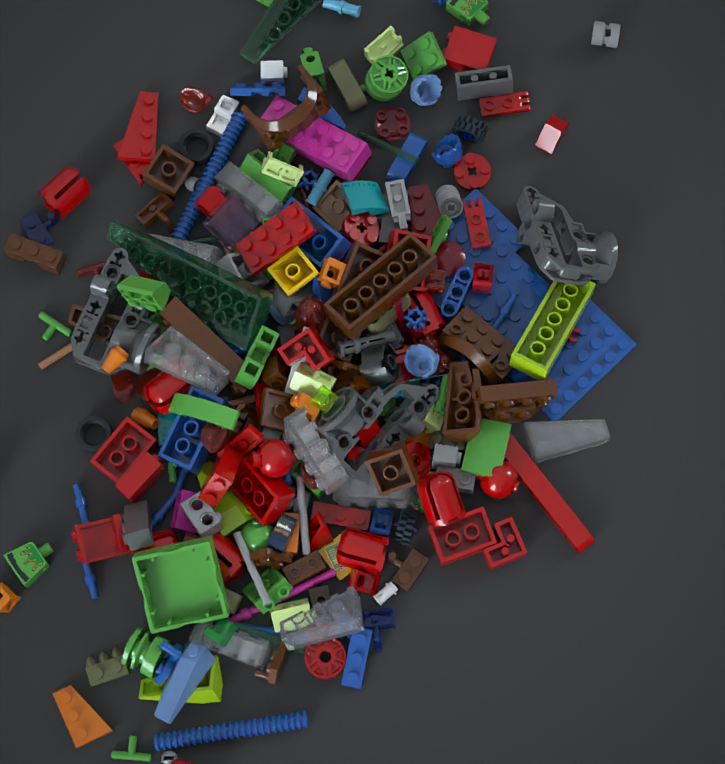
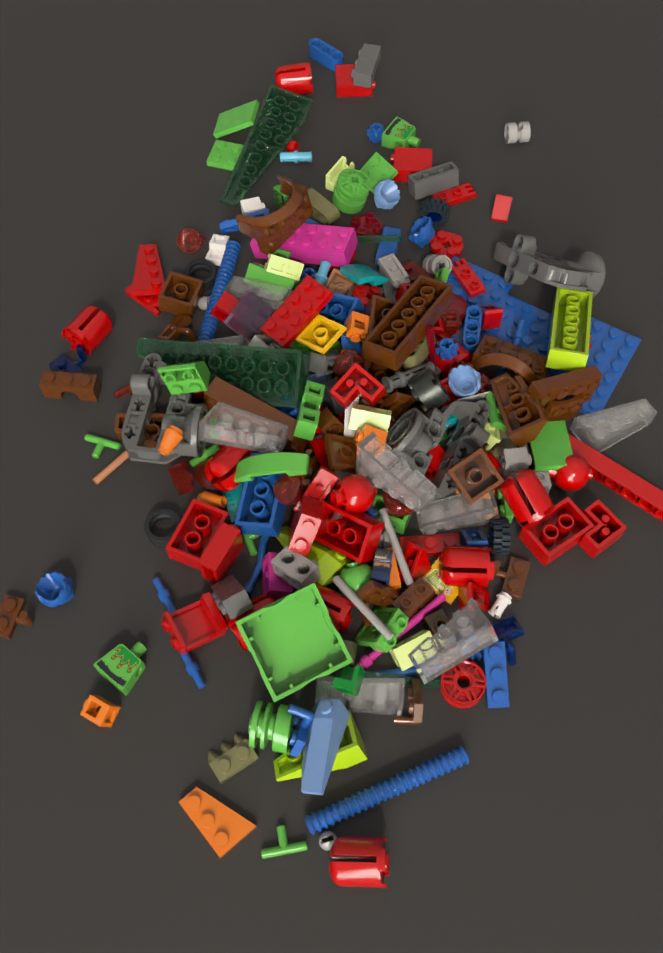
camera: 20 degrees left, 15 degrees down
(324, 398) = (388, 425): clear neon green plate -> none

